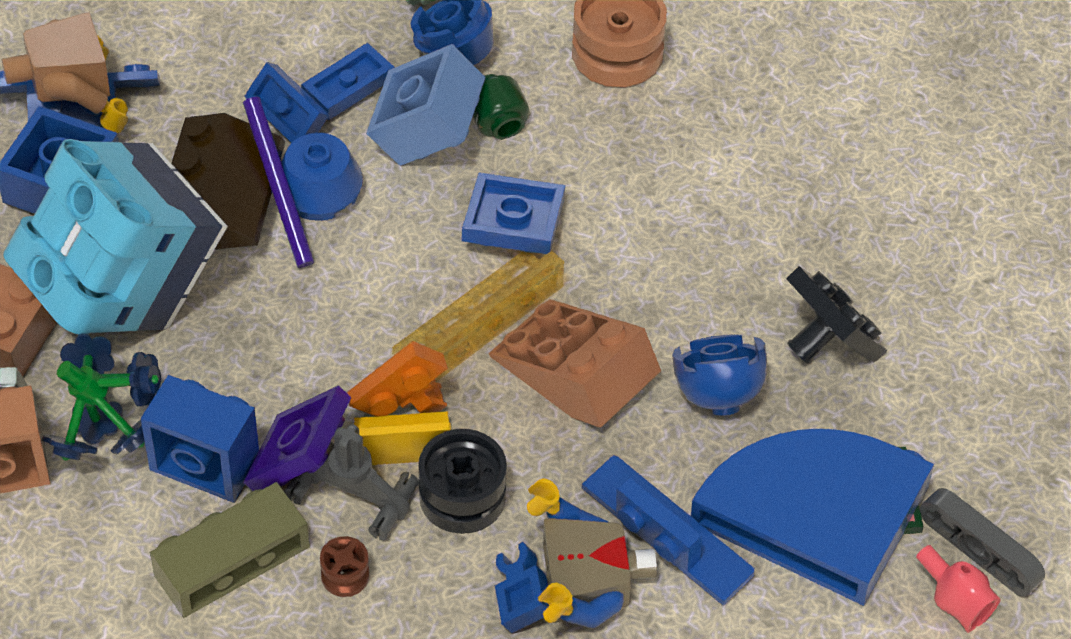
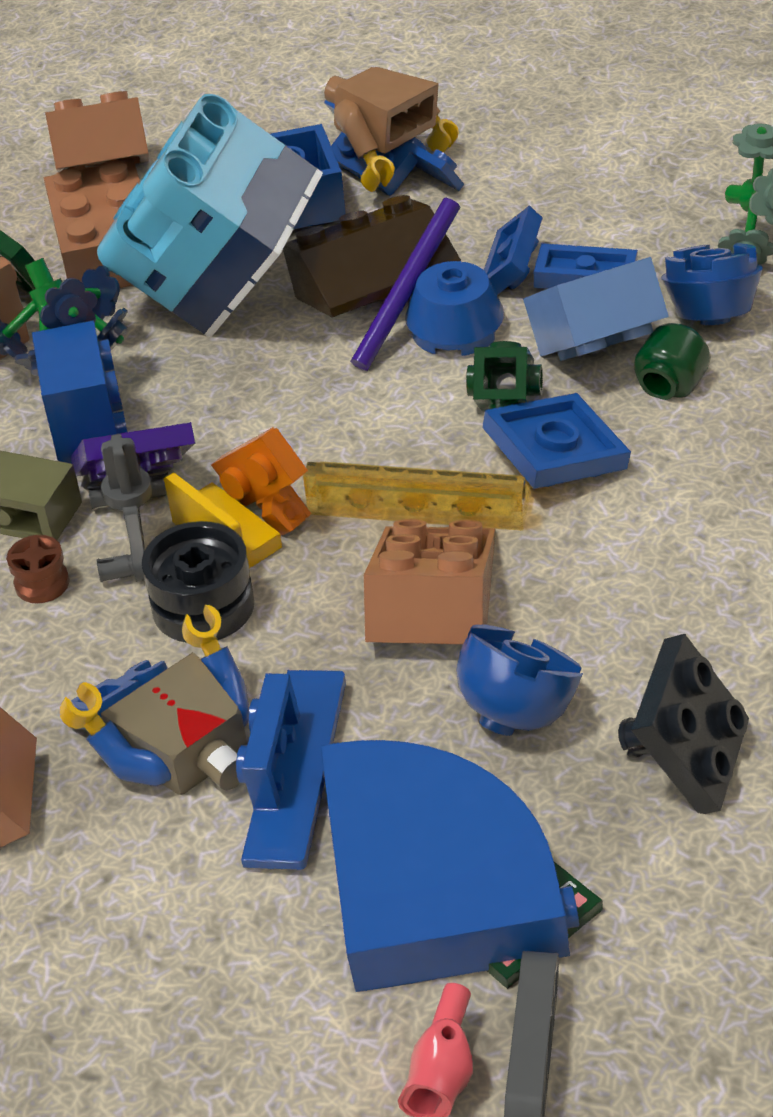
camera: 60 degrees right, 10 degrees down
(434, 198) = (495, 364): none -> dark green brick

